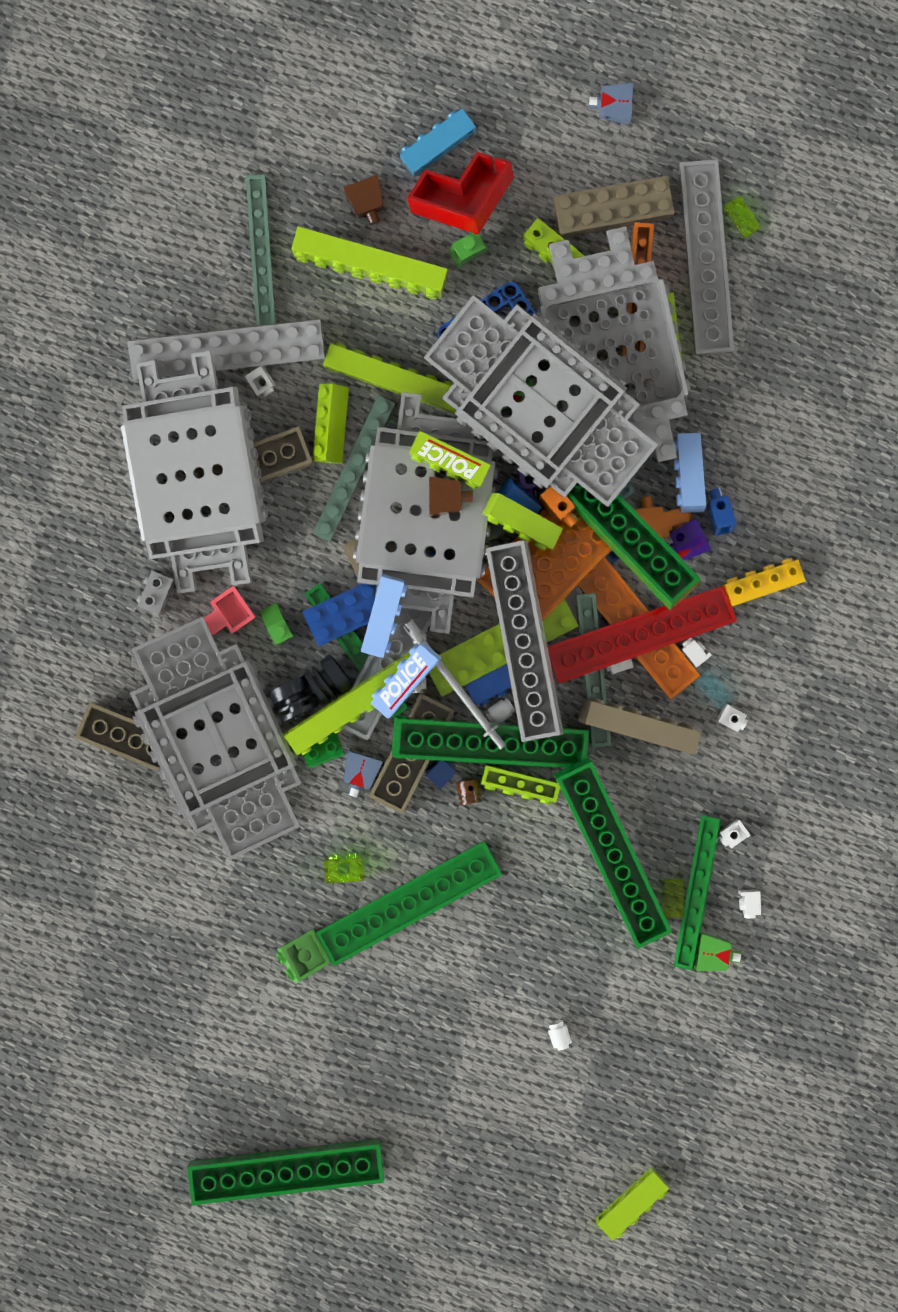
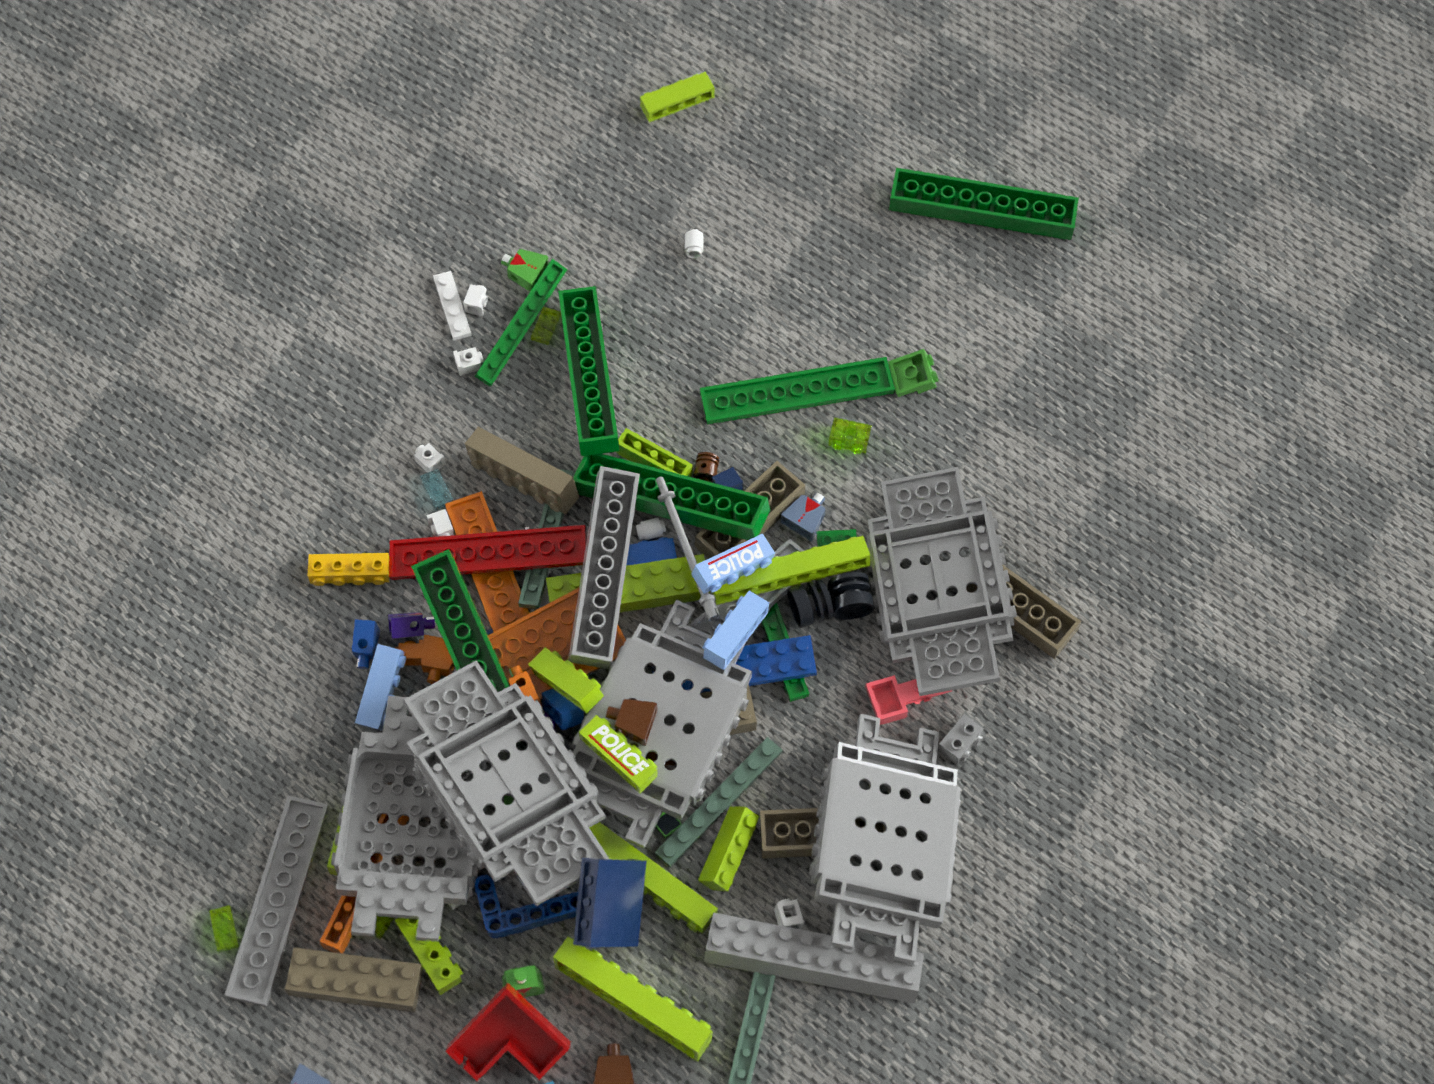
camera: 165 degrees left, 25 degrees down
(276, 624) = (846, 673): bright green slope -> none
(413, 326) = (609, 902): none -> dark blue panel
(771, 891) = (452, 305): none -> white plate

